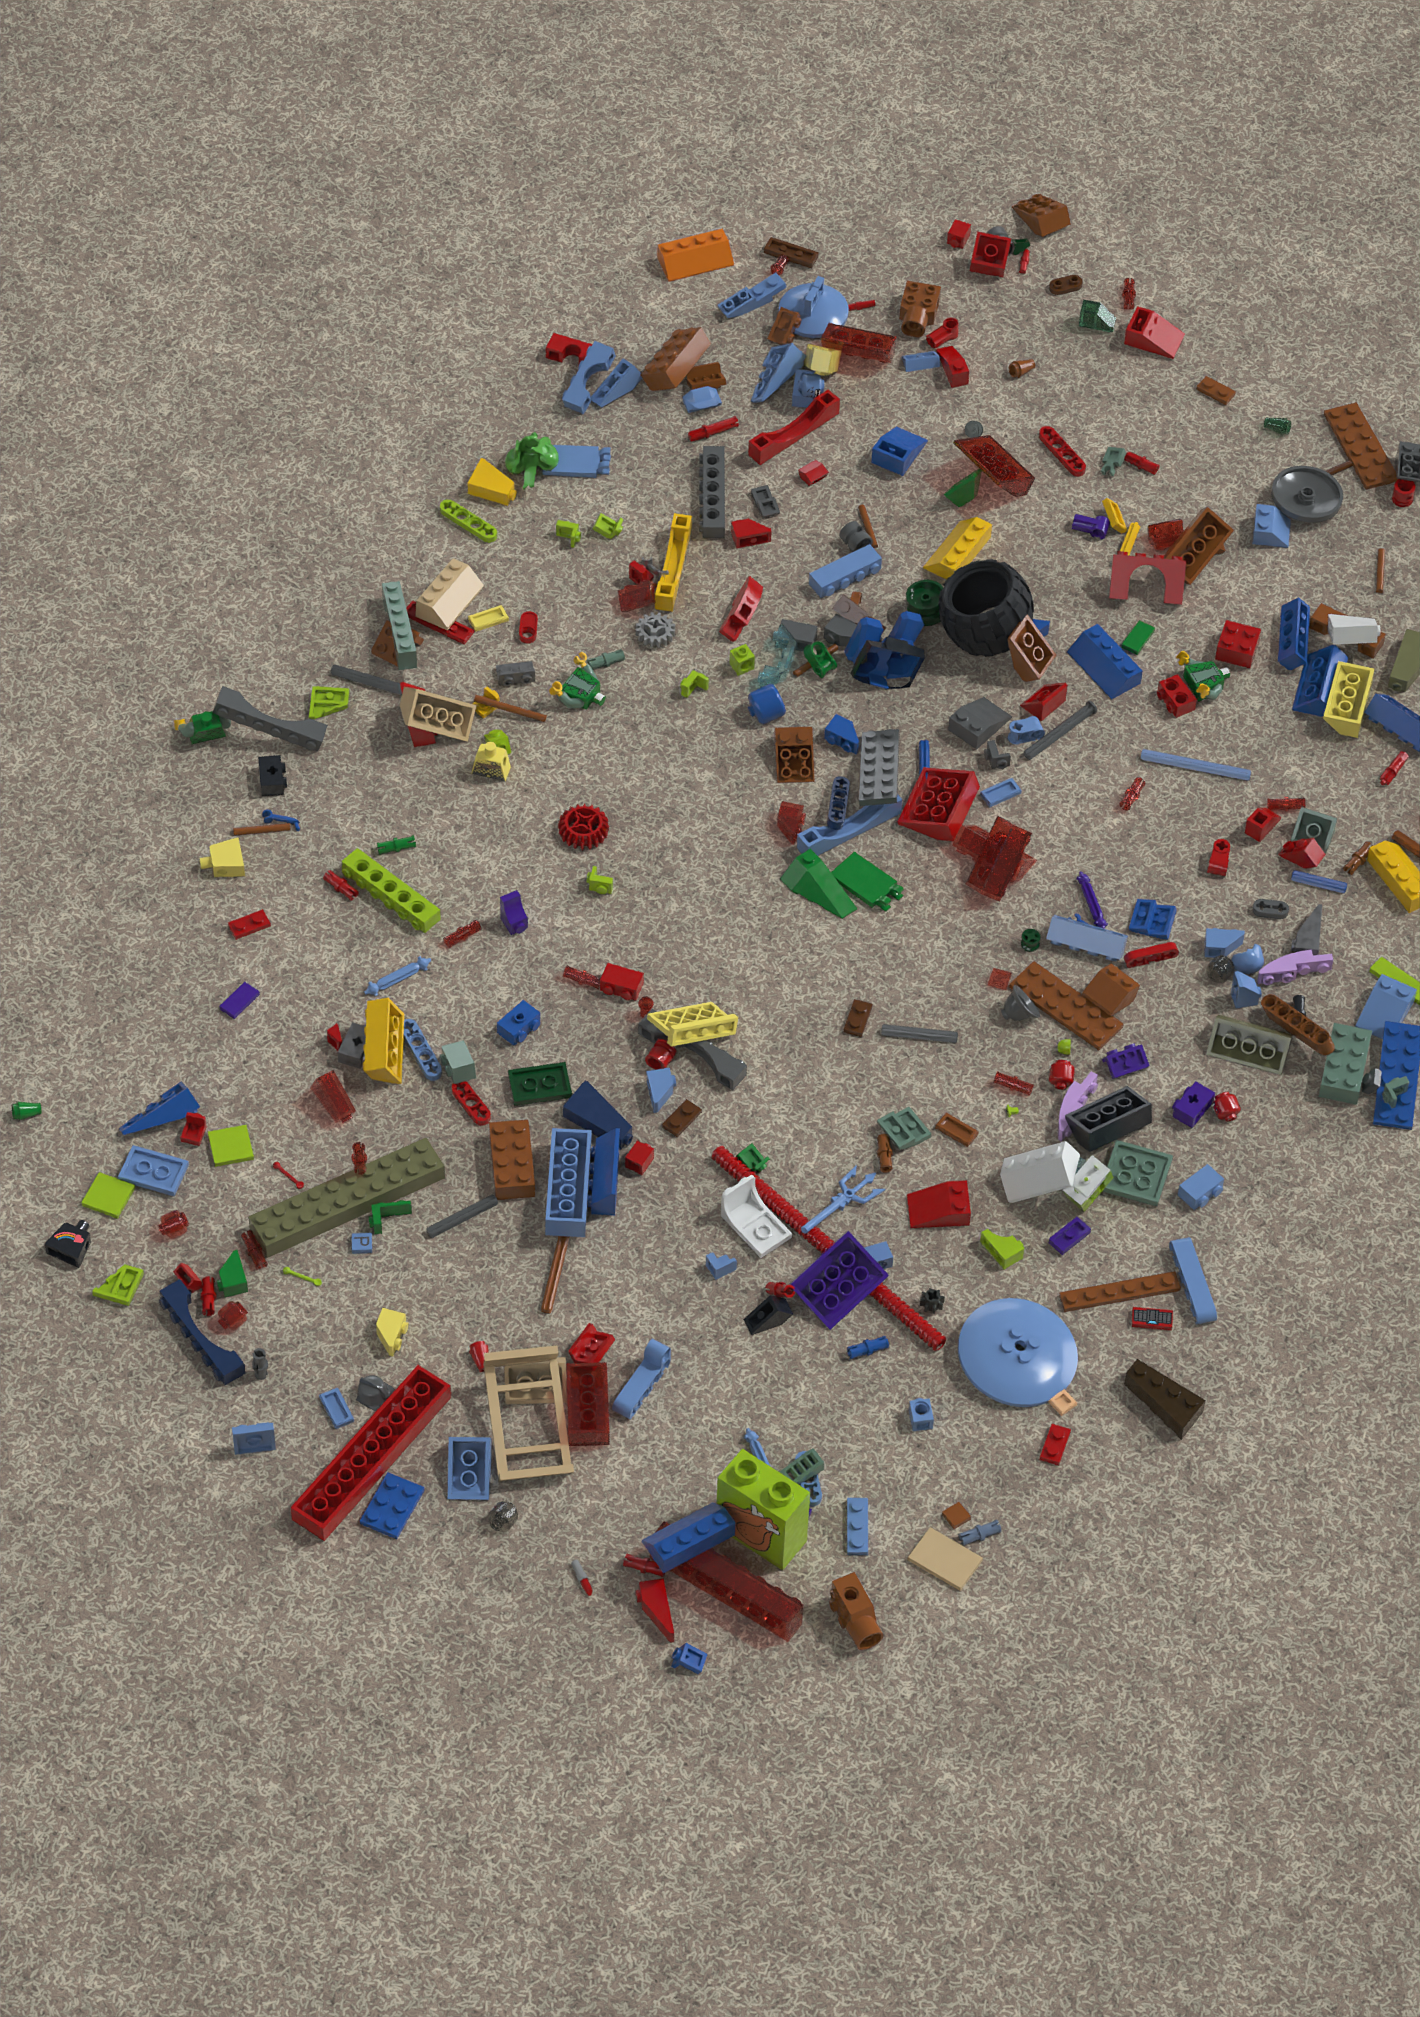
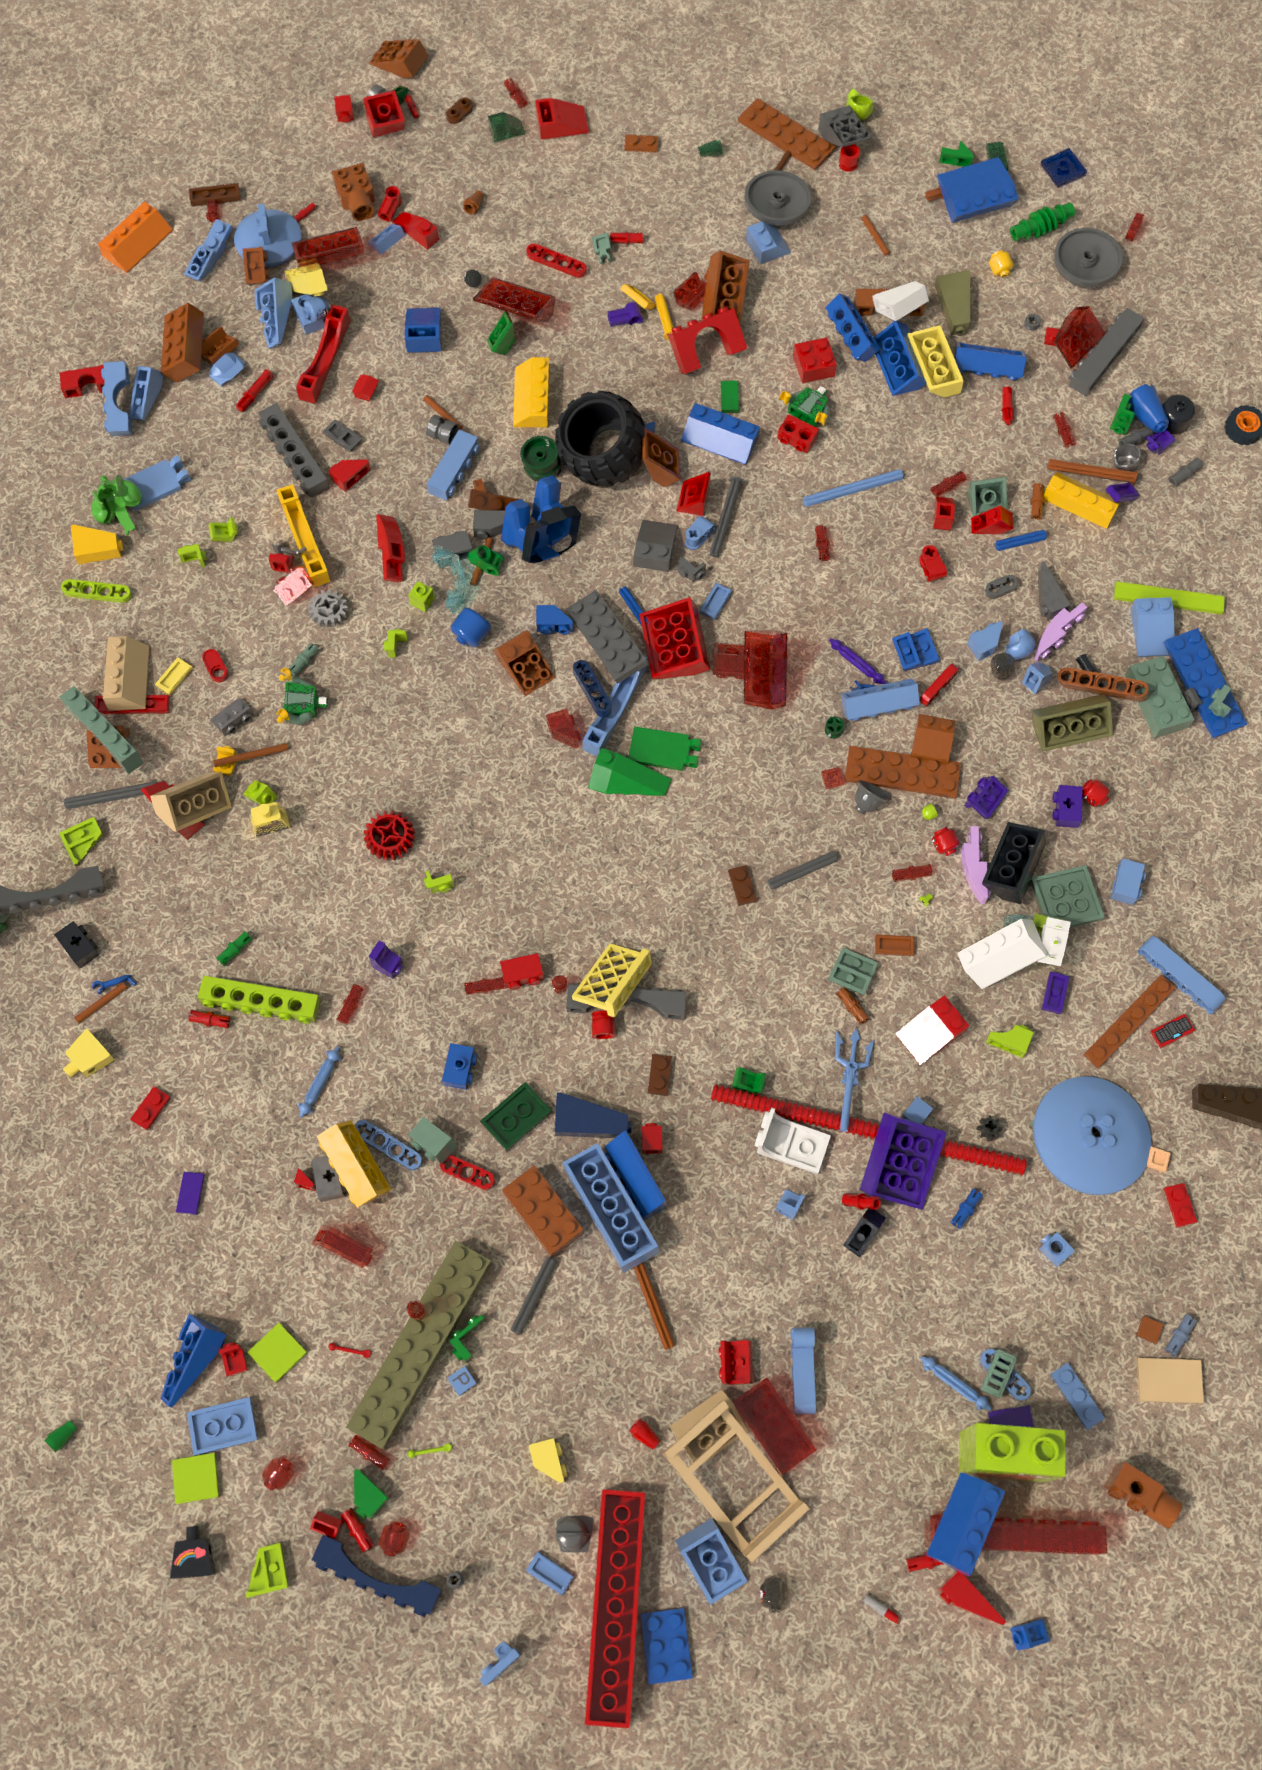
camera: 30 degrees left, 15 degrees up
(660, 1087) = (622, 1056): medium blue slope -> none

